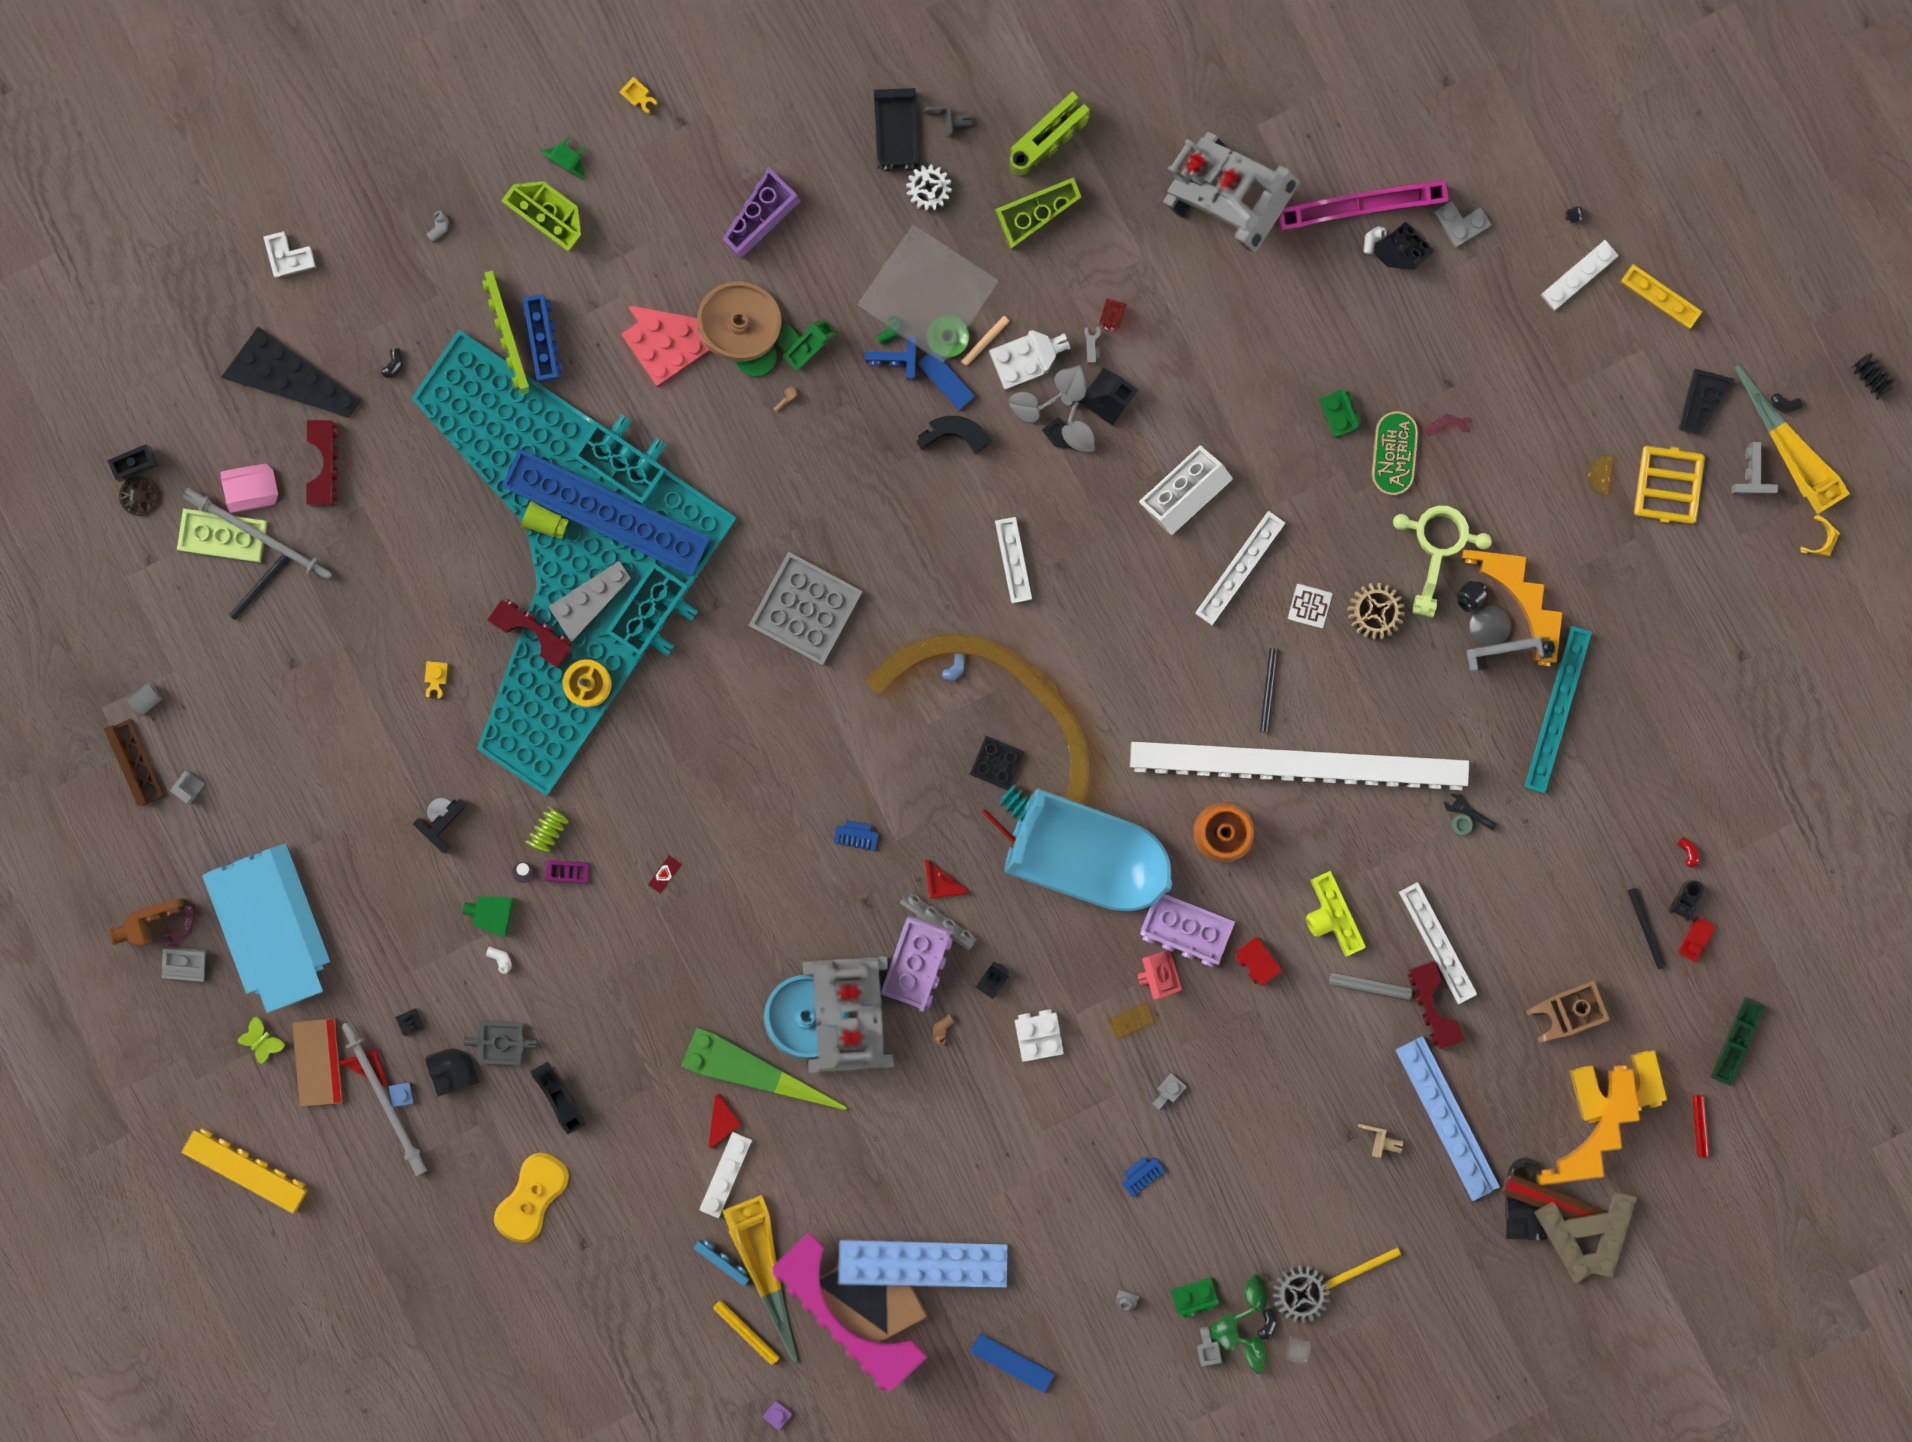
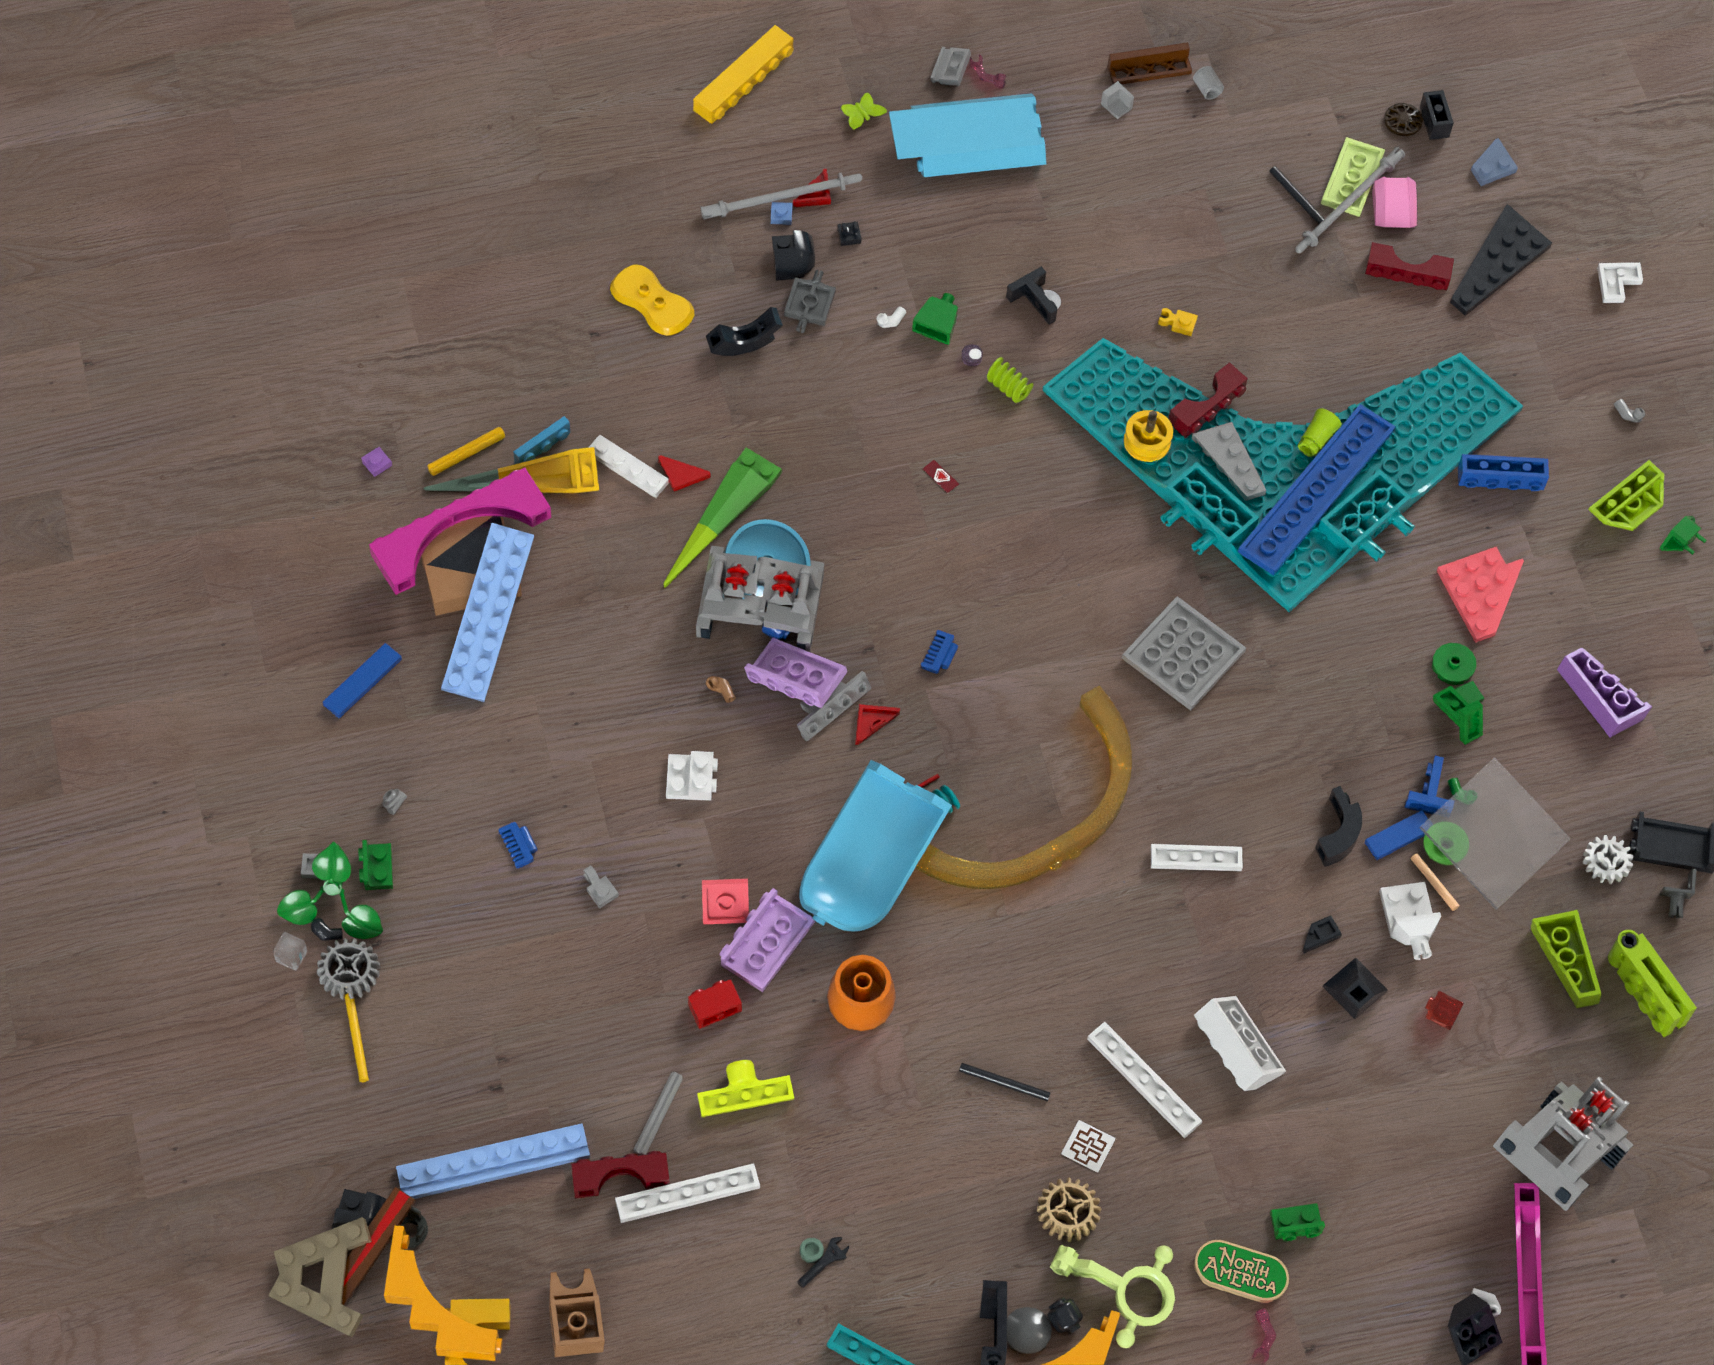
camera: 100 degrees right, 25 degrees down
(136, 927) = (997, 34): dark orange plate -> none
(173, 397) = (1493, 164): none -> sand blue wing
(317, 1062) = (830, 152): medium nougat tile -> none
(394, 366) = (1496, 348): black arm -> none
(502, 325) = (1521, 441): lime plate -> none
(548, 871) = (967, 375): magenta slope -> none
(739, 321) = (1493, 650): medium nougat dish -> none
(791, 394) = (1407, 687): medium nougat hand -> none
(956, 670) = (1091, 780): medium blue arm -> none
(993, 980) = (759, 743): black bracket -> none
(996, 763) = (985, 798): black tile -> none
(1072, 389) = (1362, 946): light grey plant -> none
(1092, 351) = (1411, 980): light grey plate -> none
(1130, 1020) = (683, 868): clear yellow tile -> none
(1299, 764) = (916, 1096): white brick -> none
(1382, 1142) = (485, 1086): tan bracket -> none

